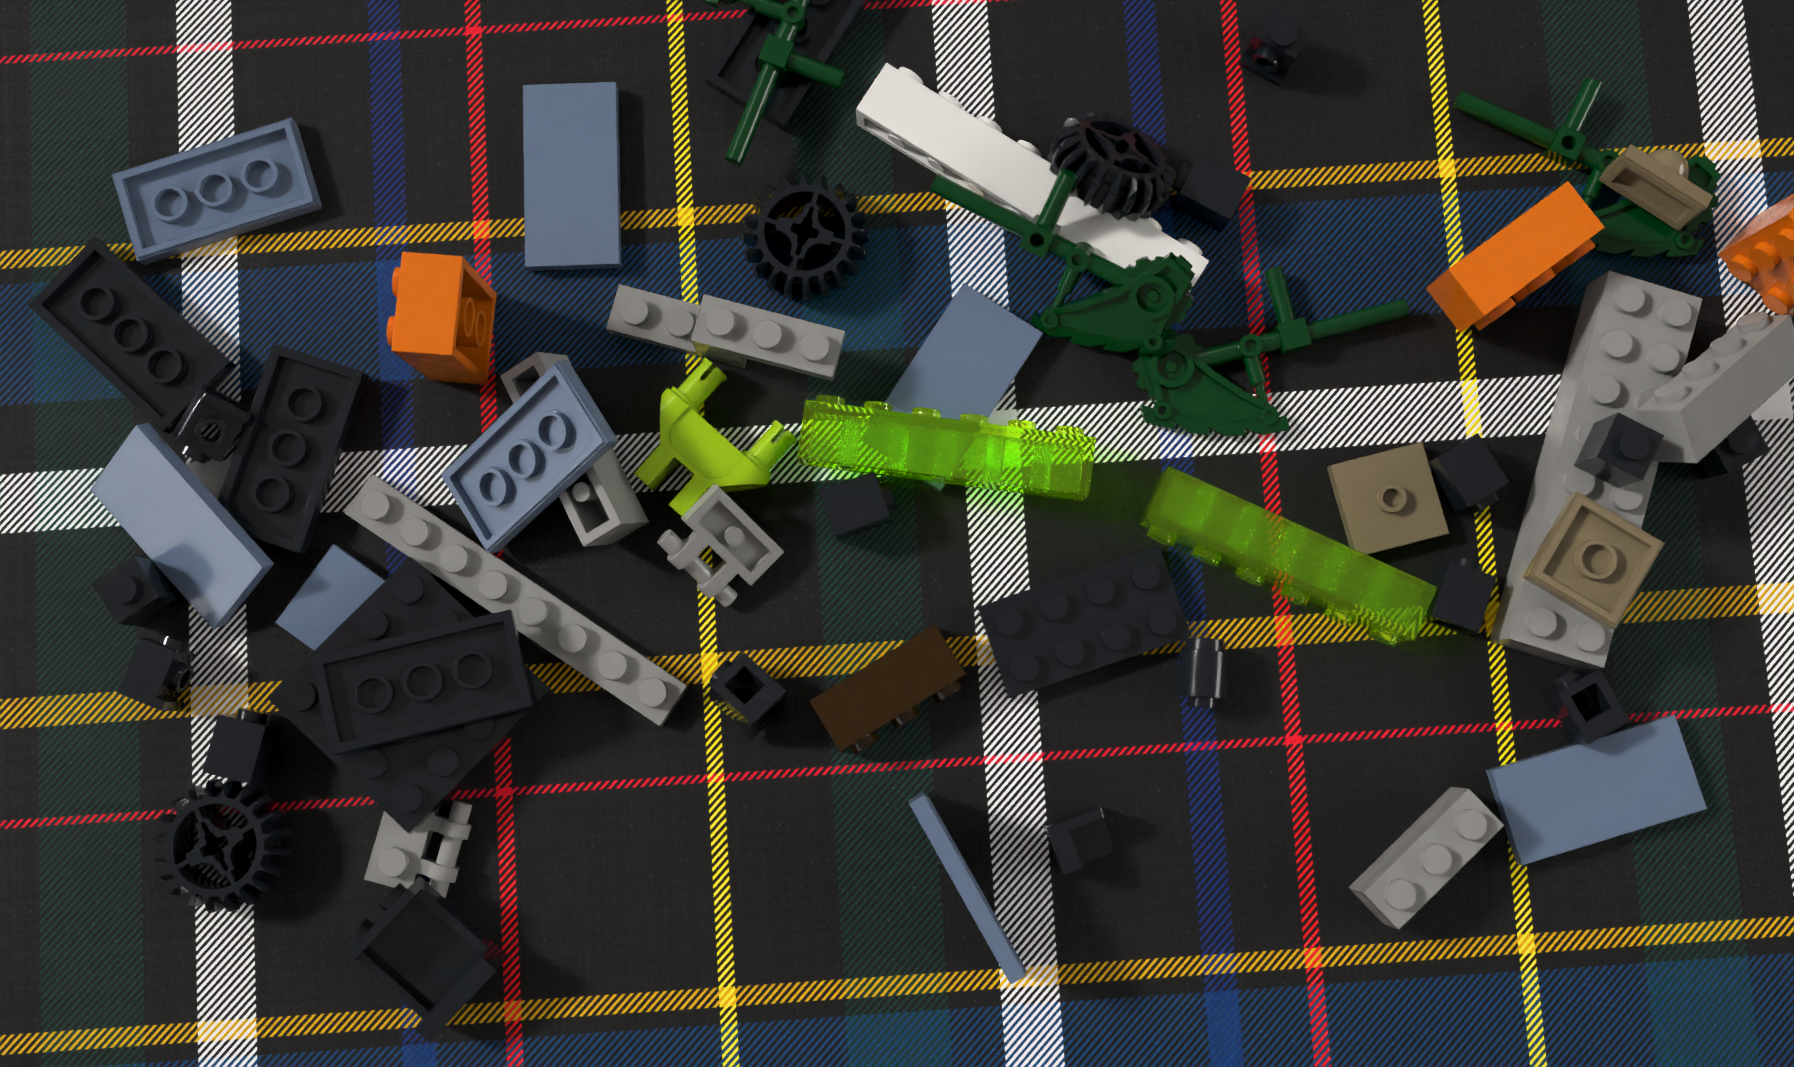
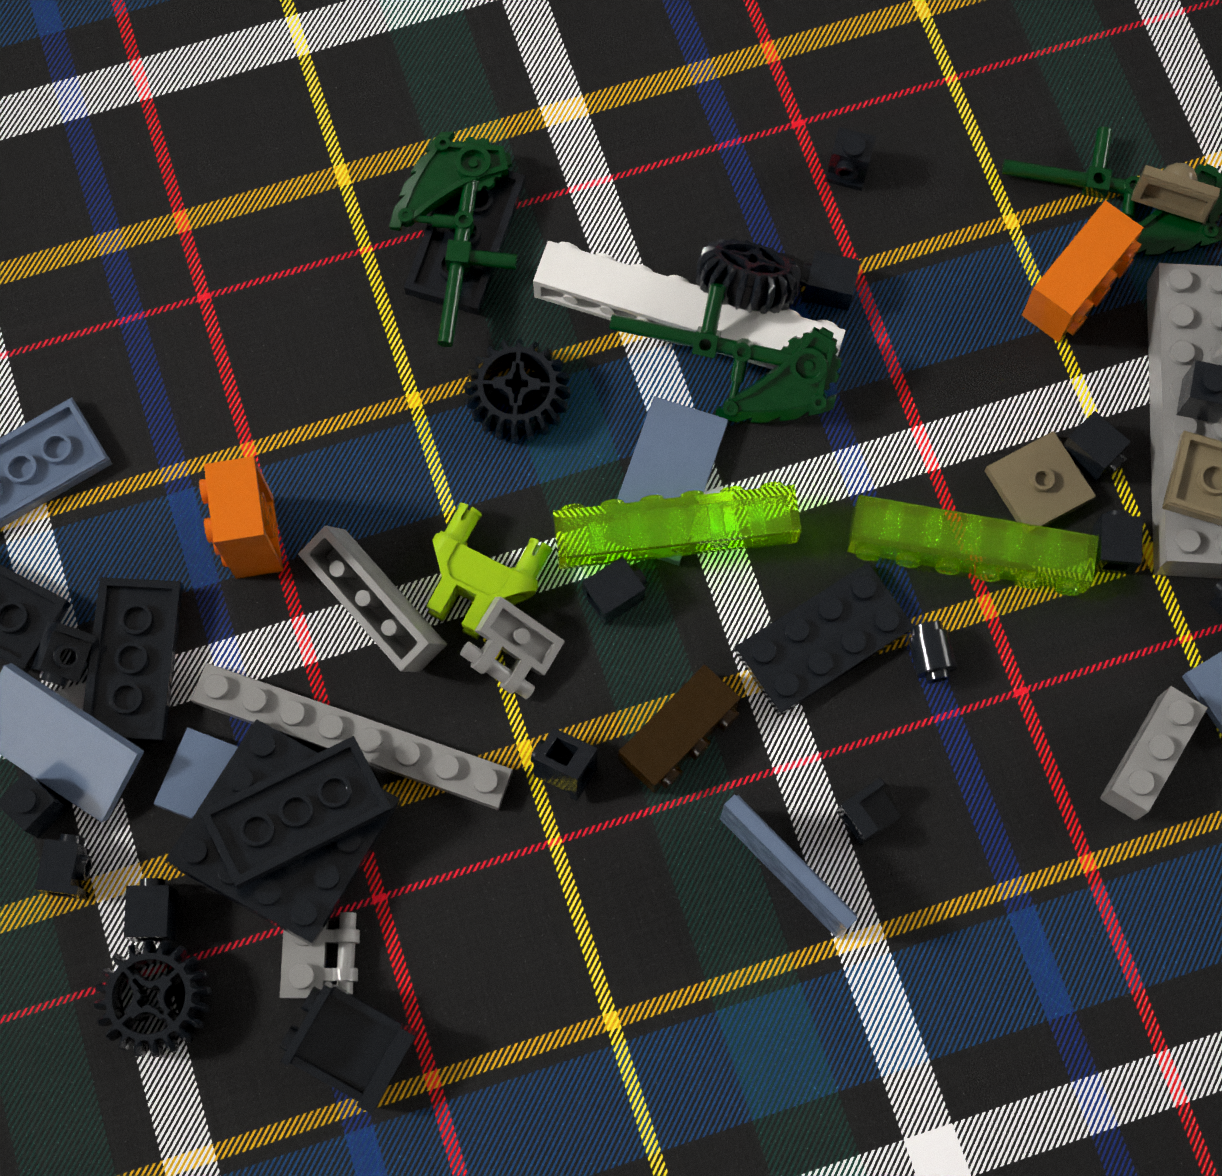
camera: 15 degrees left, 10 degrees down
(529, 456) = (337, 612): sand blue tile -> none
(571, 176) = (314, 390): sand blue tile -> none
(726, 332) = (472, 477): light grey bracket -> none
(1202, 400) = (869, 441): dark green bar -> none

